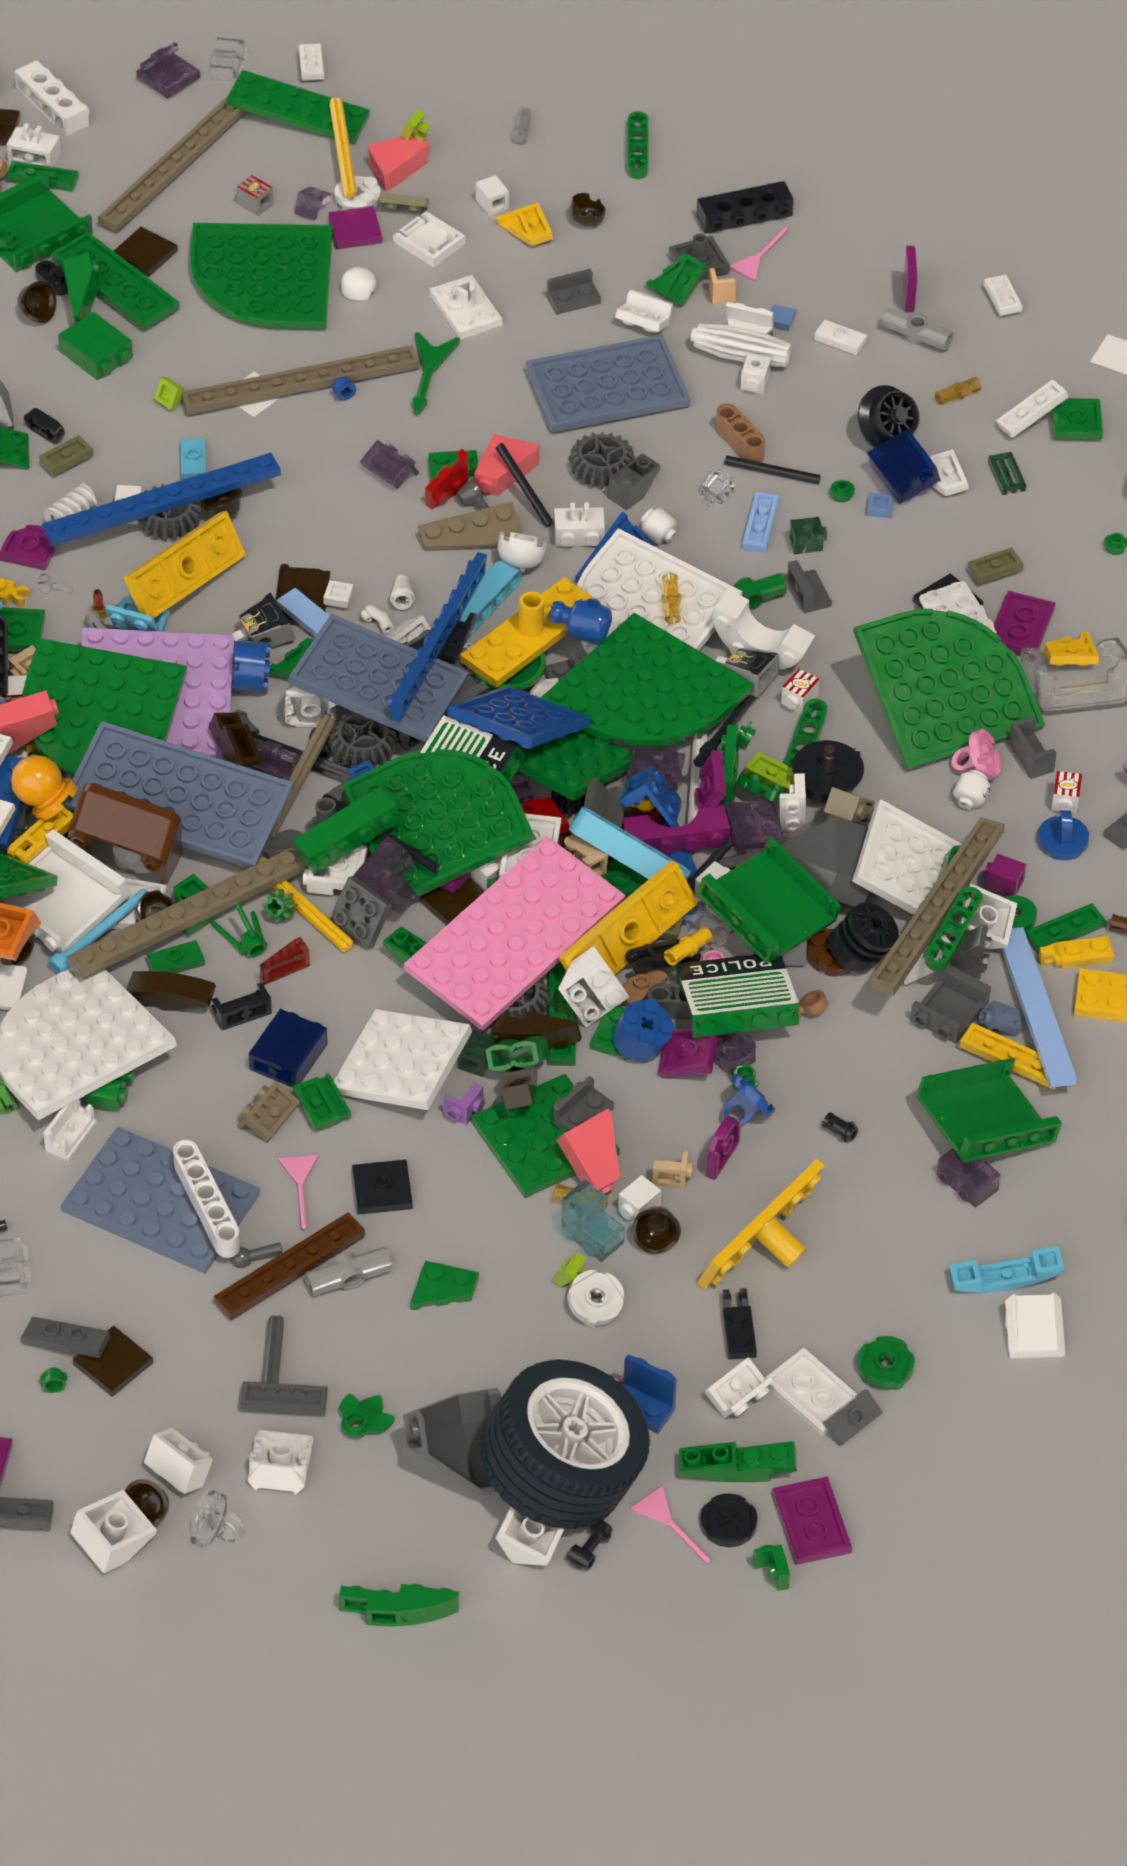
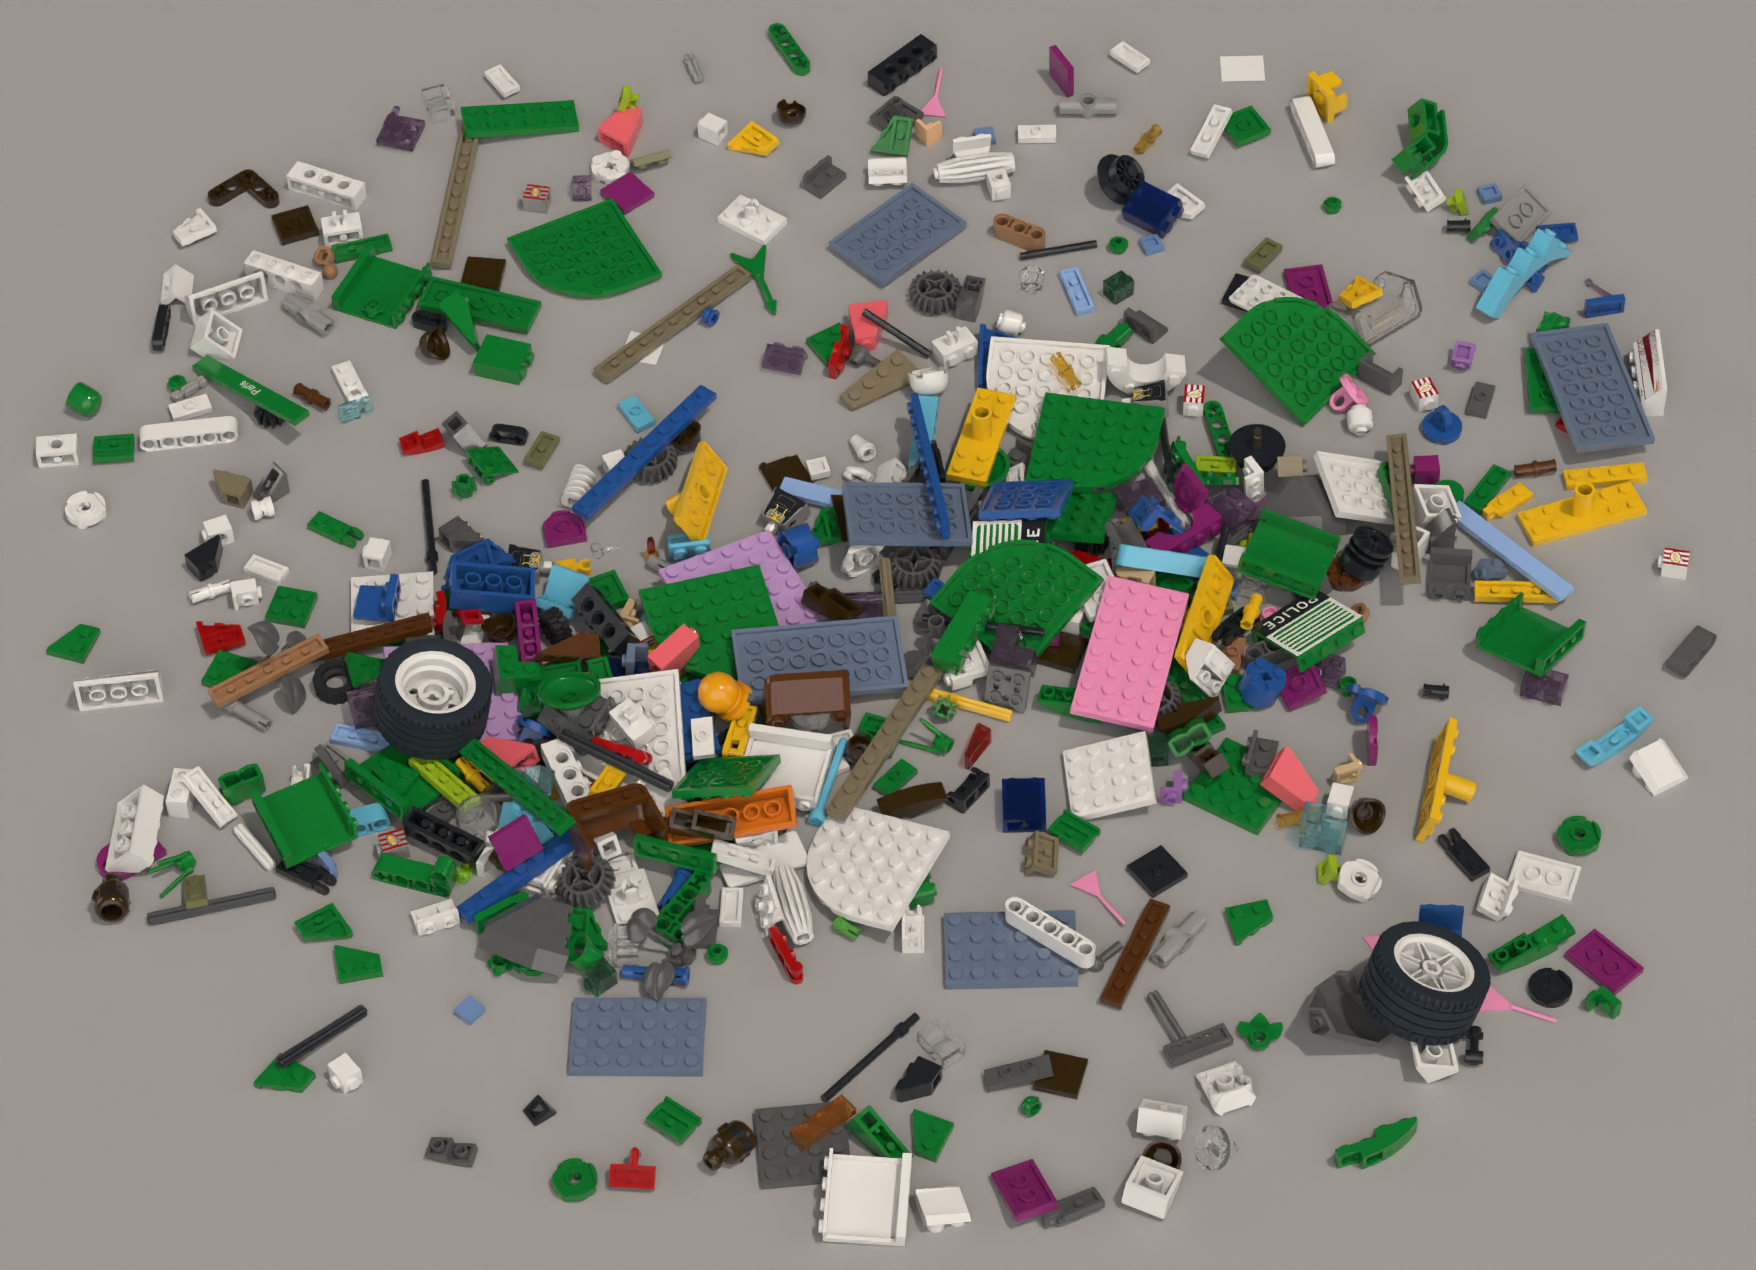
camera: 25 degrees left, 0 degrees up
(168, 393) = (584, 372): lime tile -> none
(343, 147) = (579, 136): yellow axle -> none
(358, 283) = (661, 234): white hair -> none
(426, 239) = (685, 180): white container -> none
(584, 621) = (1020, 411): blue piece -> none
(852, 1417) = (1583, 881): dark grey plate -> none
(952, 928) = (1428, 520): green beam -> none
(1010, 486) = (1220, 187): clear green tile -> none

